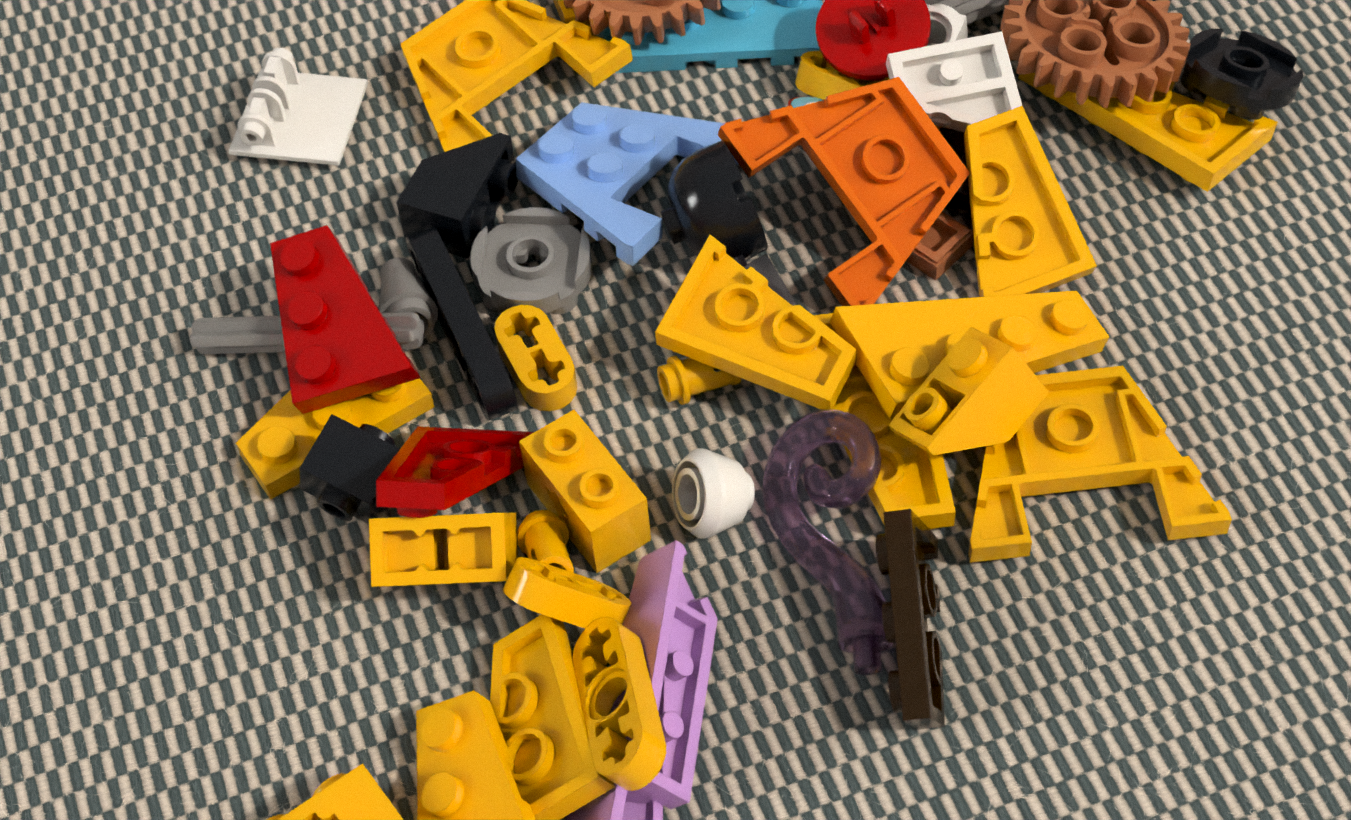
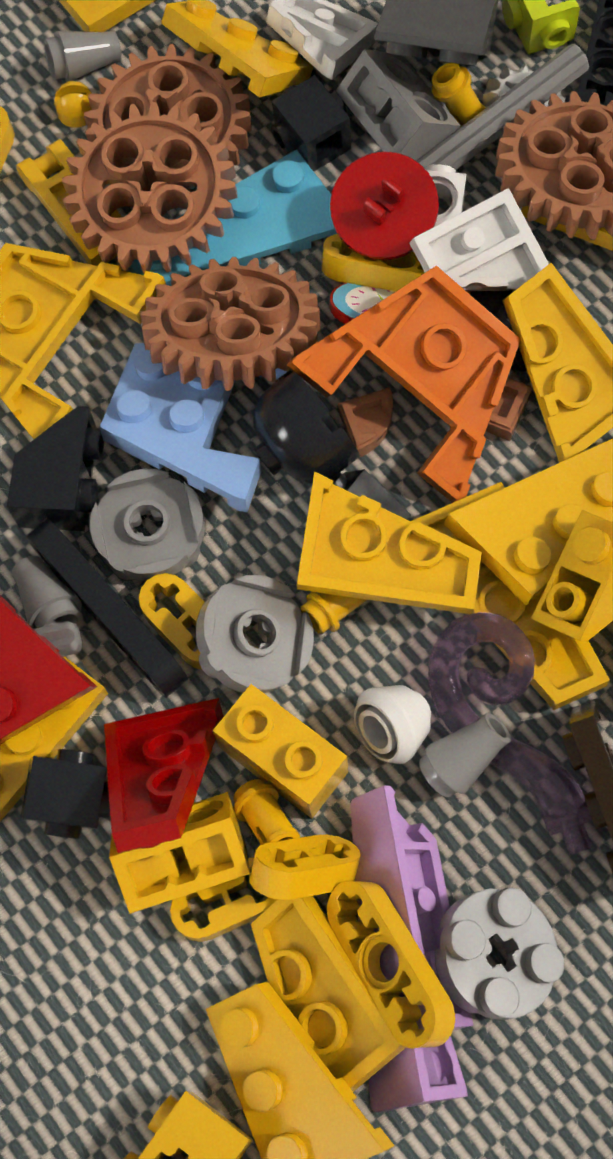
camera: 15 degrees left, 15 degrees up
(477, 615) = (222, 919): none -> yellow beam
(584, 346) = (226, 651): none -> light grey plate
(676, 95) = (230, 323): none -> nougat gear
(718, 766) = (530, 948): none -> plate
(771, 541) = (462, 756): none -> light grey cone
(792, 225) = (367, 419): none -> nougat tile

